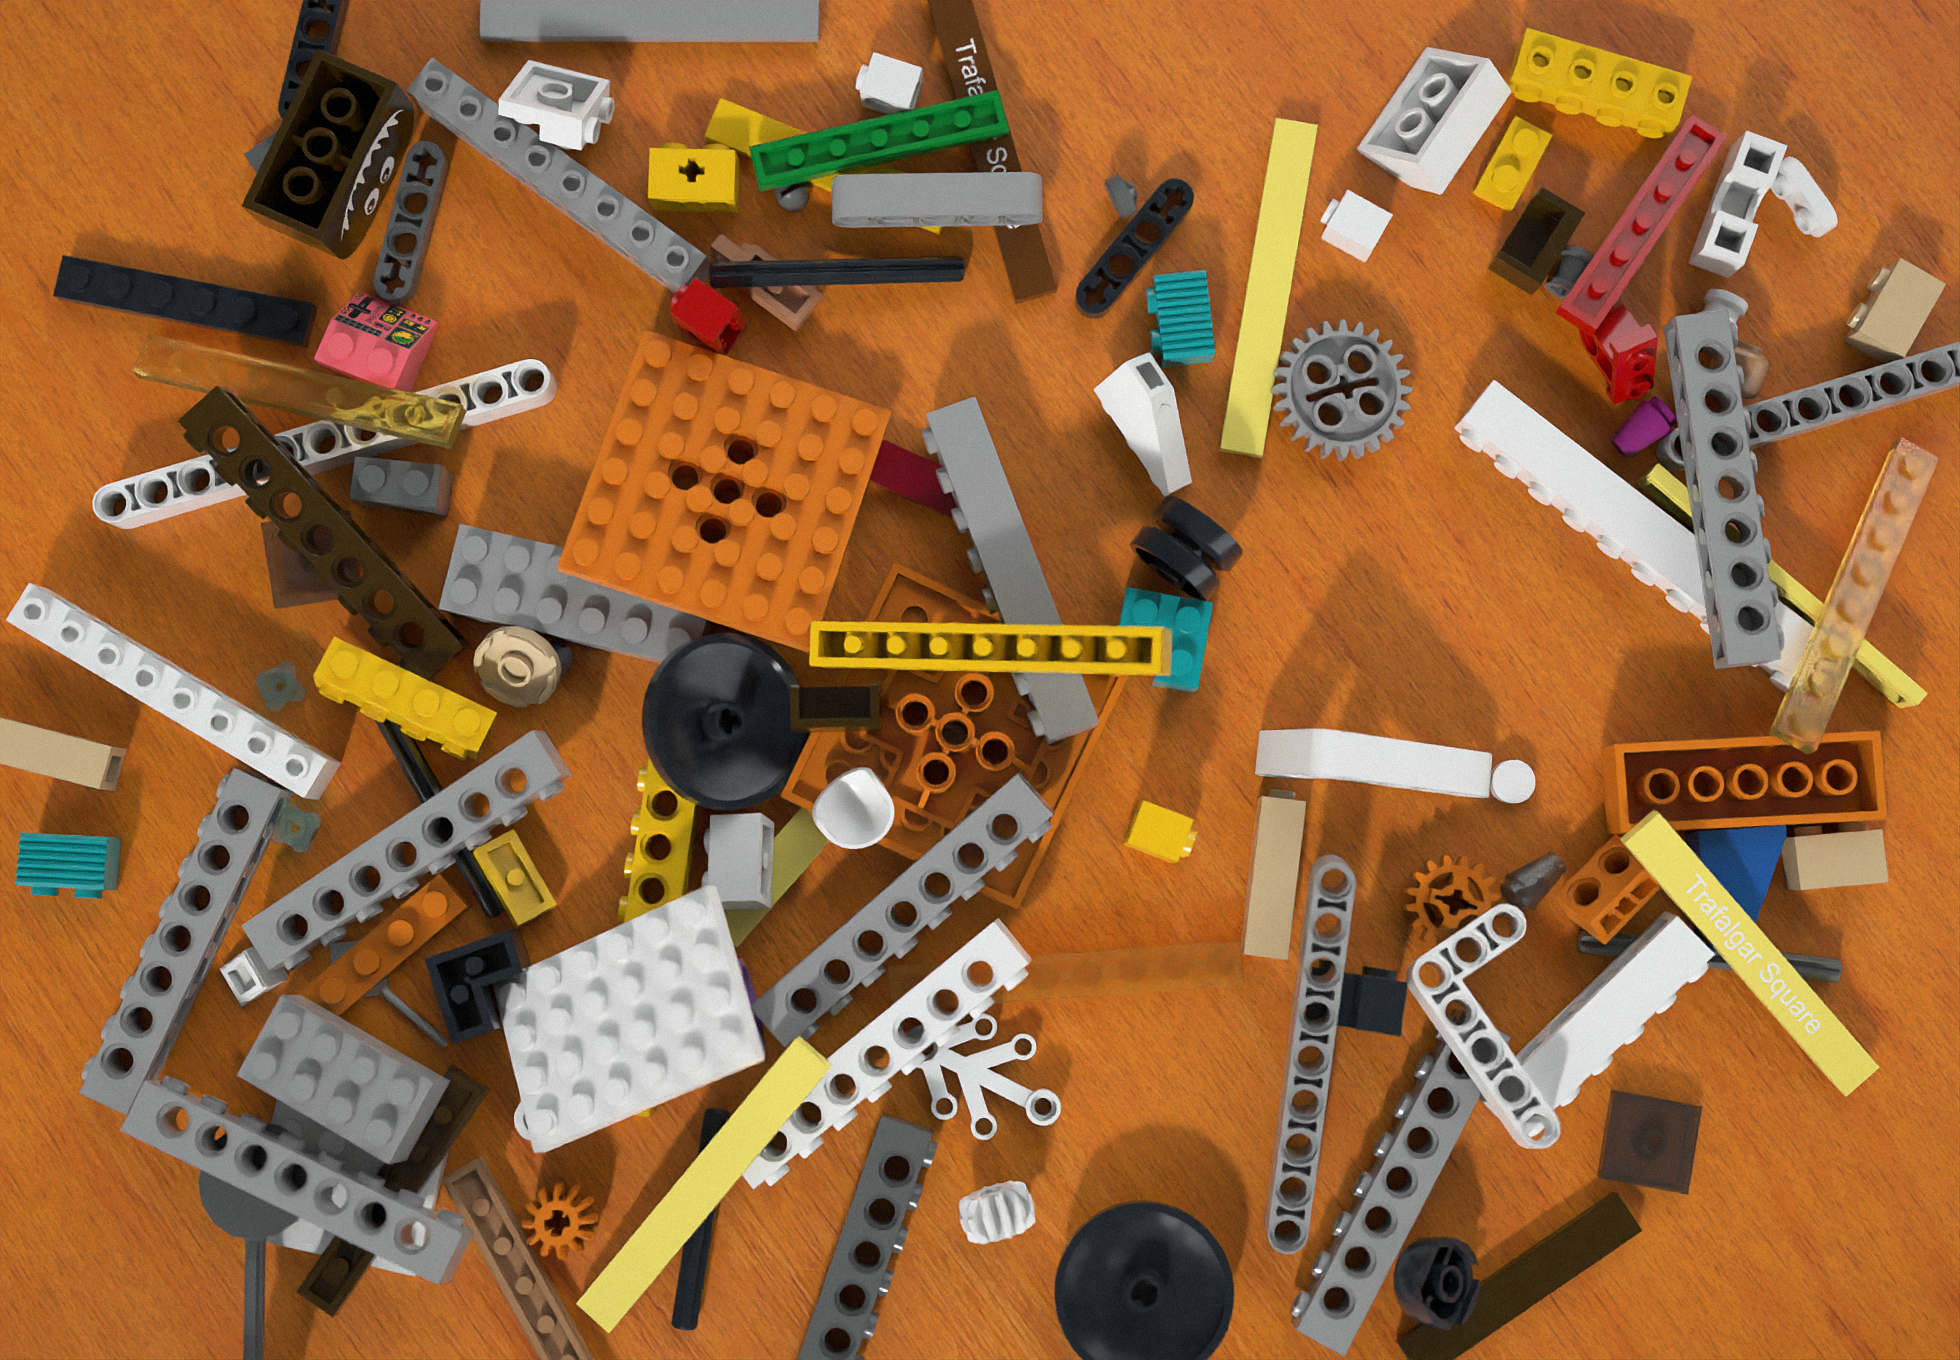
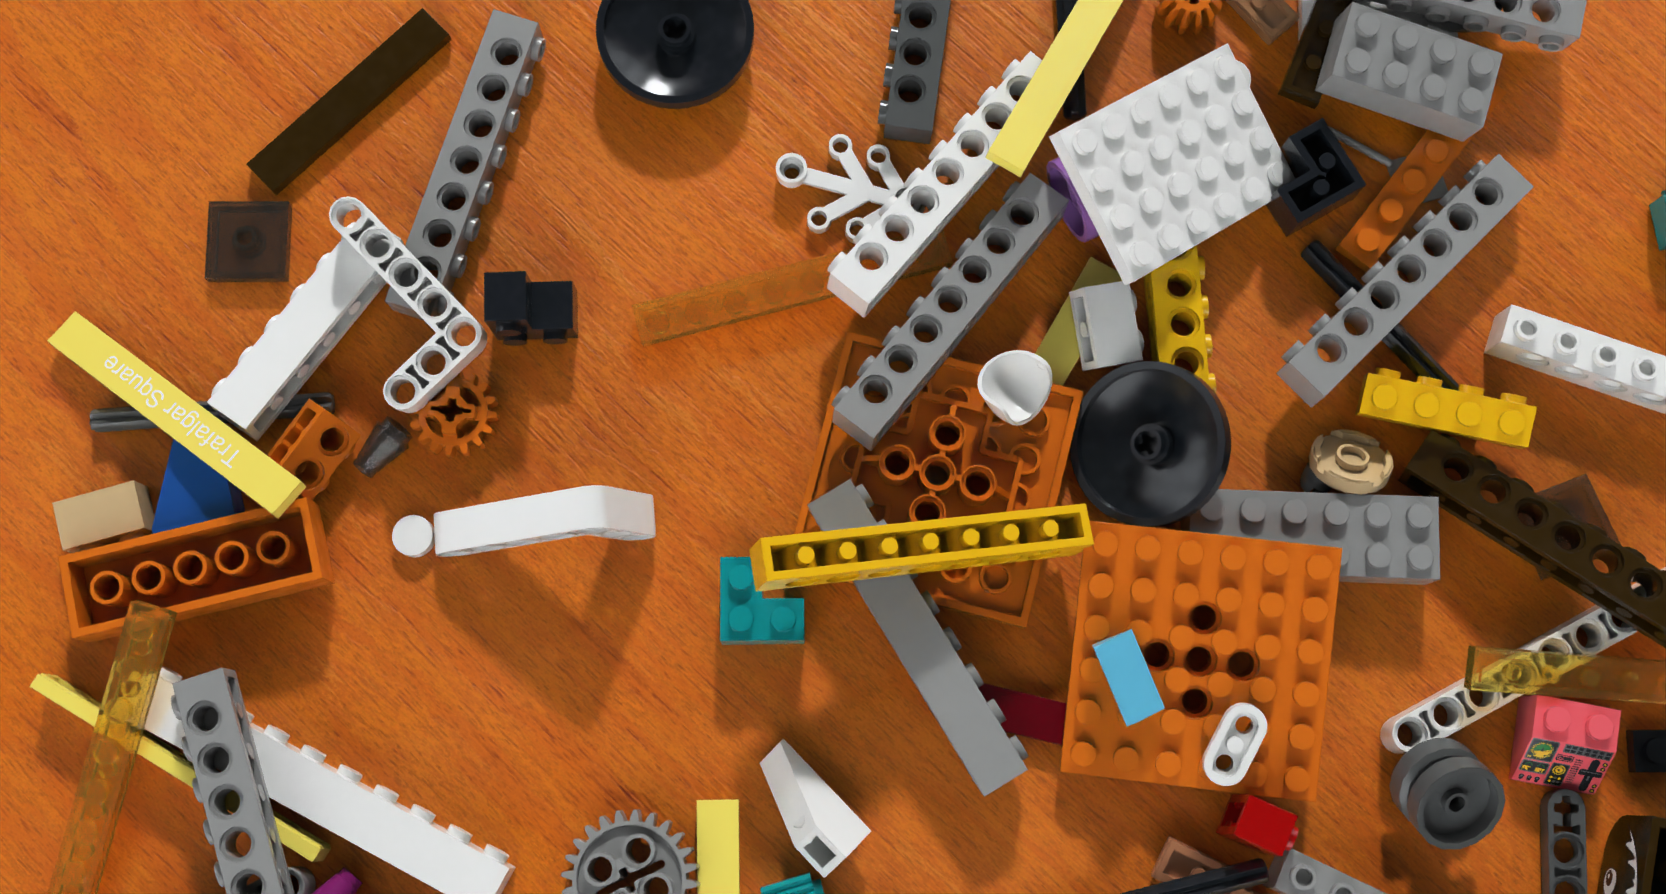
camera: 165 degrees right, 5 degrees down
(103, 1074) = (1610, 44): light grey brick -> none
(250, 976) = (1512, 149): white slope -> none
(268, 682) = (1570, 407): clear light blue plate -> none
(307, 823) = (1497, 287): clear light blue plate -> none
(401, 486) = (1502, 609): dark grey brick -> none
(511, 312) = (1447, 793): none -> dark grey wheel
(514, 878) = (1303, 276): yellow plate -> none
(712, 396) = (1237, 744): none -> white plate
(806, 482) = (1128, 677): none -> medium azure slope
(836, 708) = (1051, 475): dark brown panel -> none
(997, 1212) = (815, 72): white gear -> none
(1160, 832) = (731, 419): yellow brick -> none
(1186, 548) = (756, 684): black wheel -> none
(1273, 875) = (621, 406): tan brick -> none
(1311, 1075) = (567, 265): light grey beam -> none
(1436, 1281) = (421, 83): black cylinder -> none

